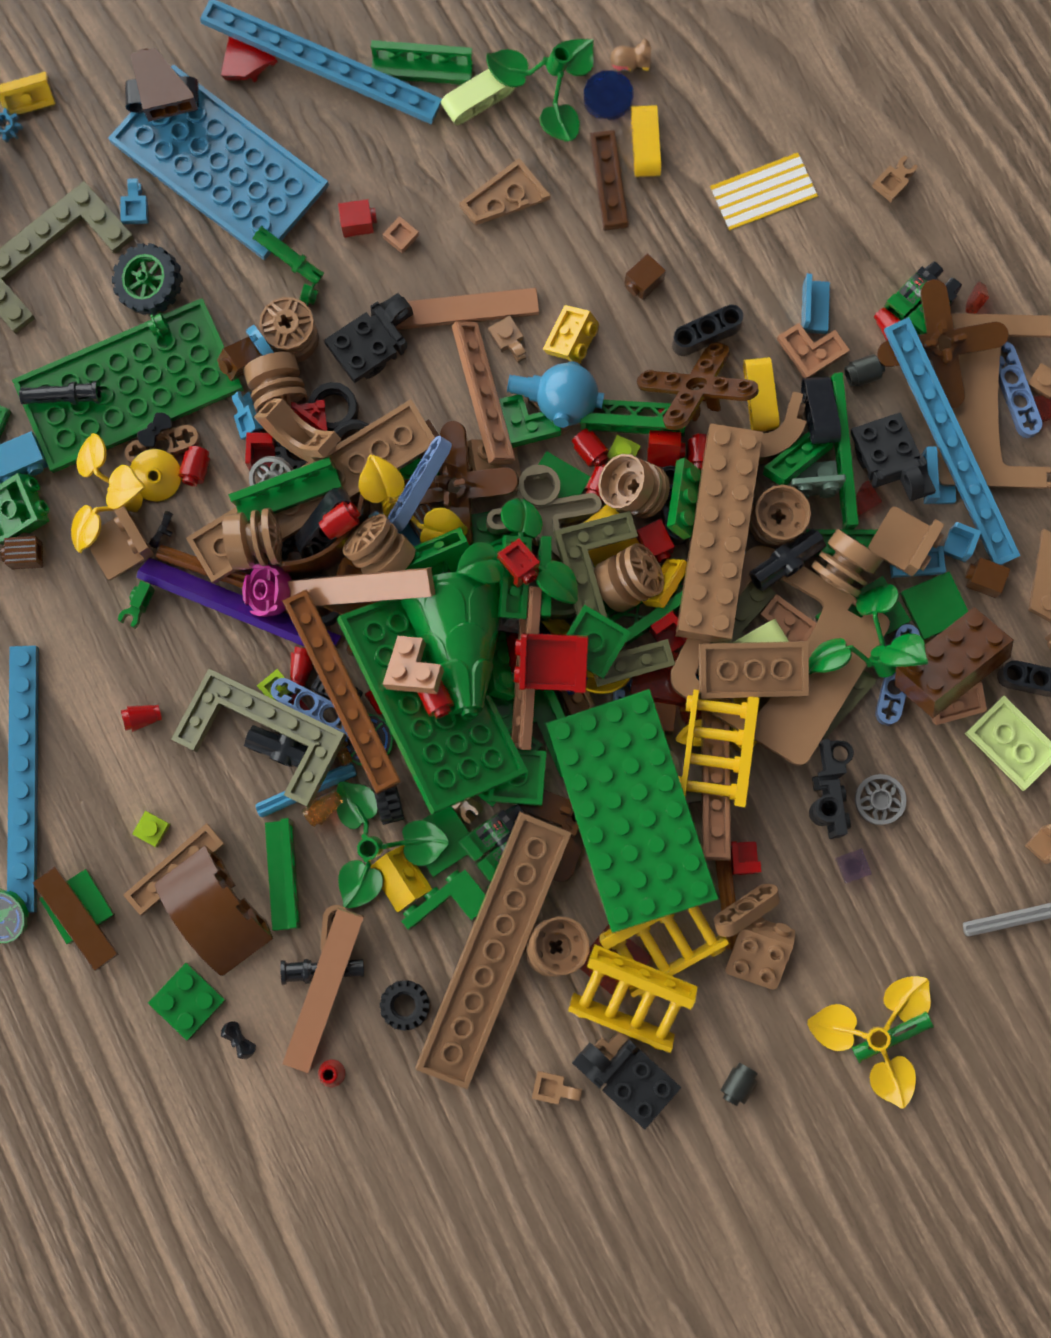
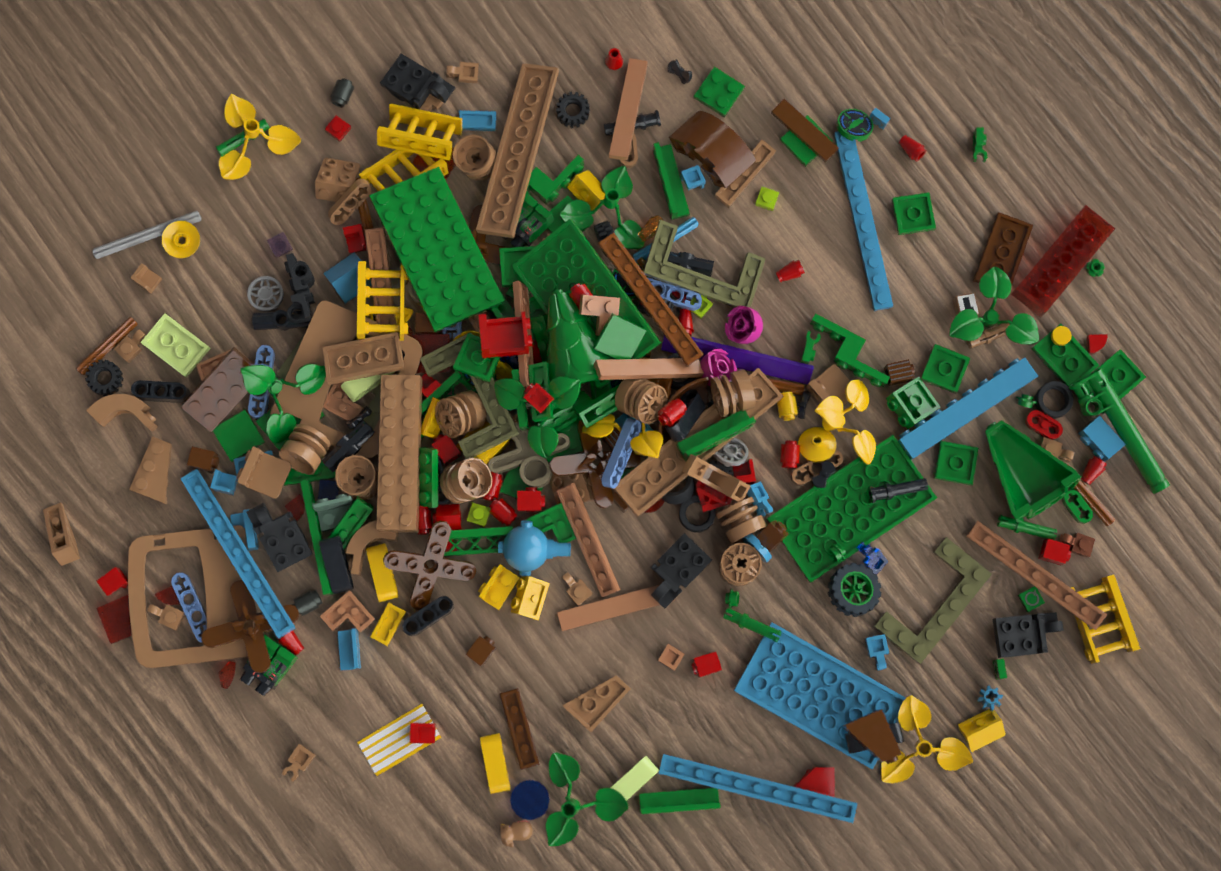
camera: 165 degrees right, 0 degrees up
(71, 69) = (951, 756): none -> yellow plant
(84, 591) = (849, 351): none -> green bracket
(113, 315) = (873, 558): none -> clear blue plate
(183, 526) = (787, 407): none -> yellow brick
(220, 645) = (744, 325): none -> dark pink cylinder
(249, 870) = (693, 177): none -> dark azure panel
(393, 628) = (619, 338): none -> tile
(545, 1012) = (478, 120): none -> dark azure tile
(552, 451) = (530, 500): none -> red brick
(610, 355) = (498, 587): none -> yellow bracket
(733, 192) = (422, 732): none -> red panel
(751, 1031) = (338, 128): none -> red plate
(761, 329) = (388, 624): none -> yellow plate
(765, 807) = (345, 277): none -> dark azure slope
(777, 592) = (366, 411): none -> black piece
(821, 514) = (328, 489): none -> tile
(876, 756) = (270, 320): none -> black piece
(1003, 885) = (172, 235): none -> yellow dish

